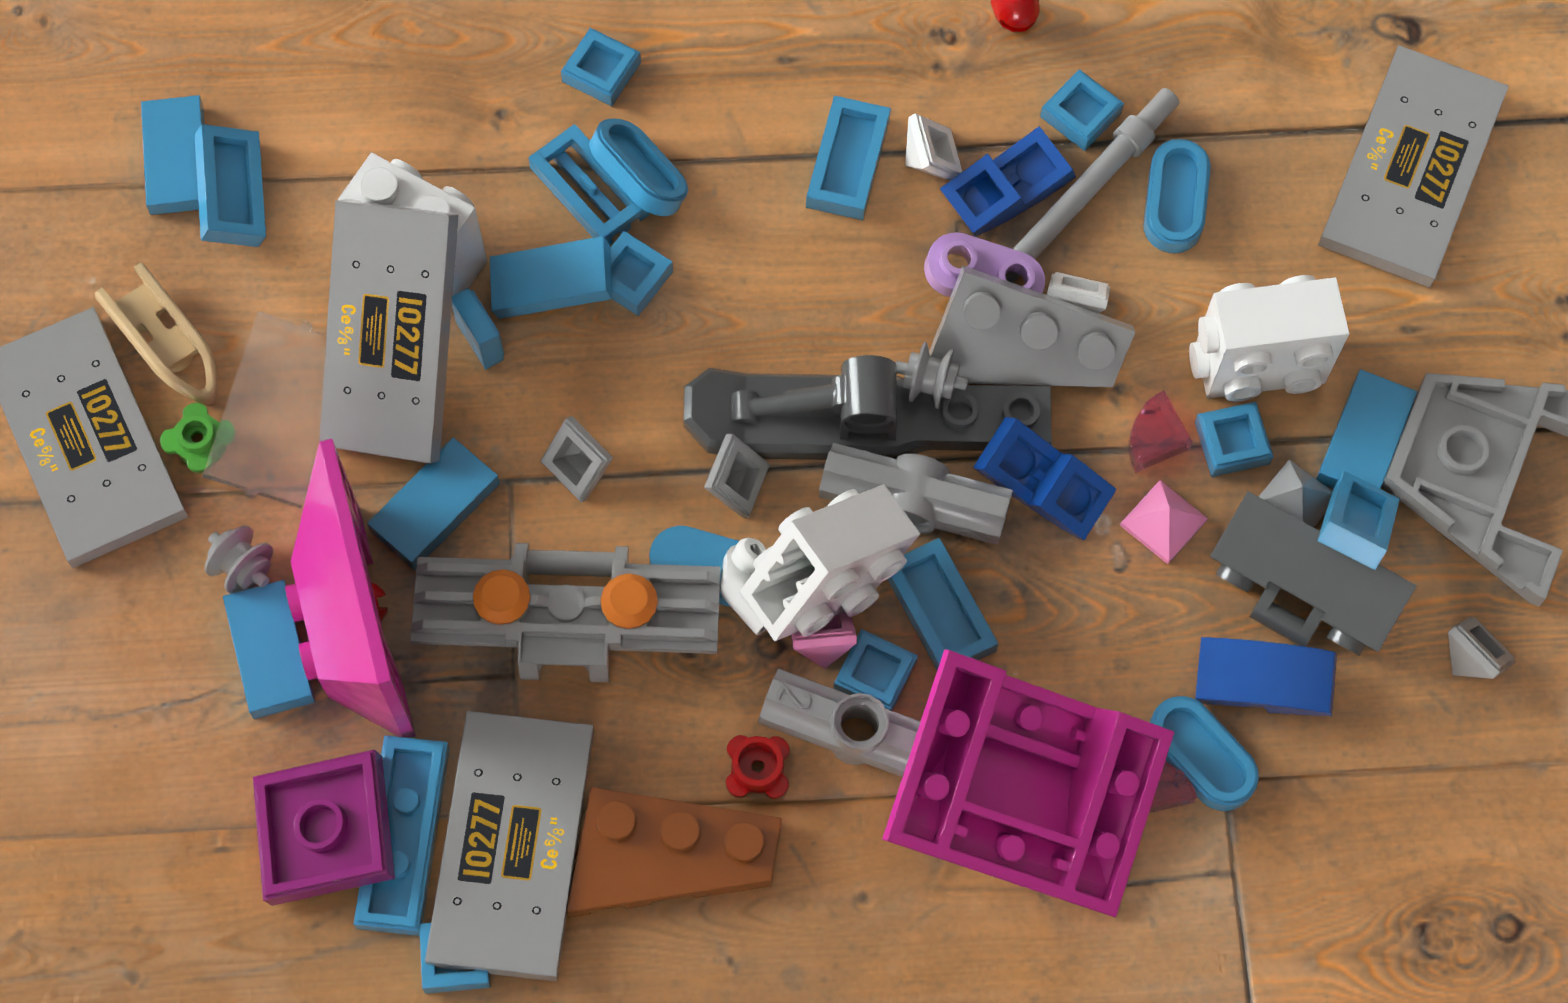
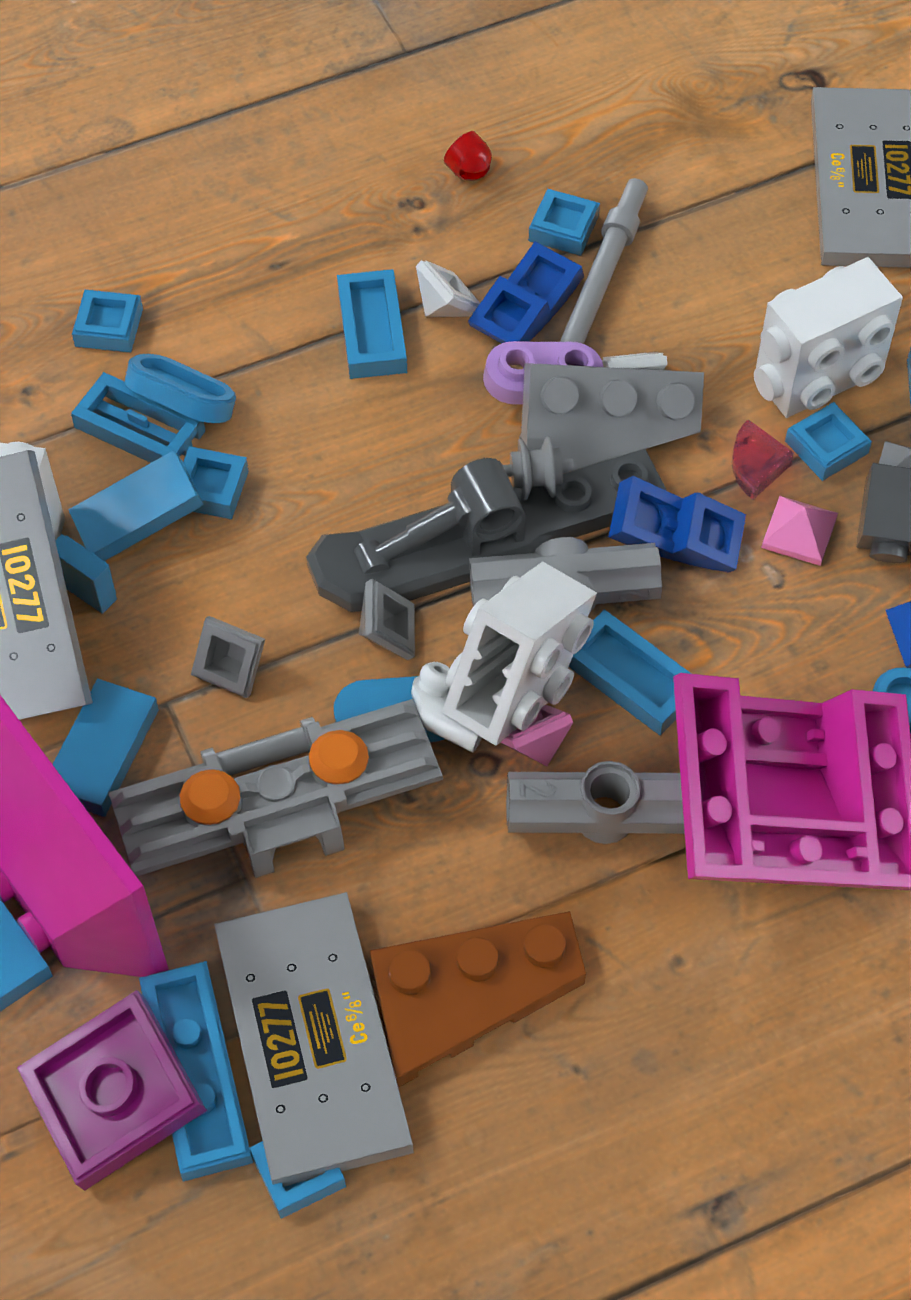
camera: 20 degrees left, 10 degrees down
(770, 753) = (519, 856): red plate -> none
(876, 669) = (597, 740): dark azure tile -> none
(1176, 196) = (680, 263): dark azure tile -> none

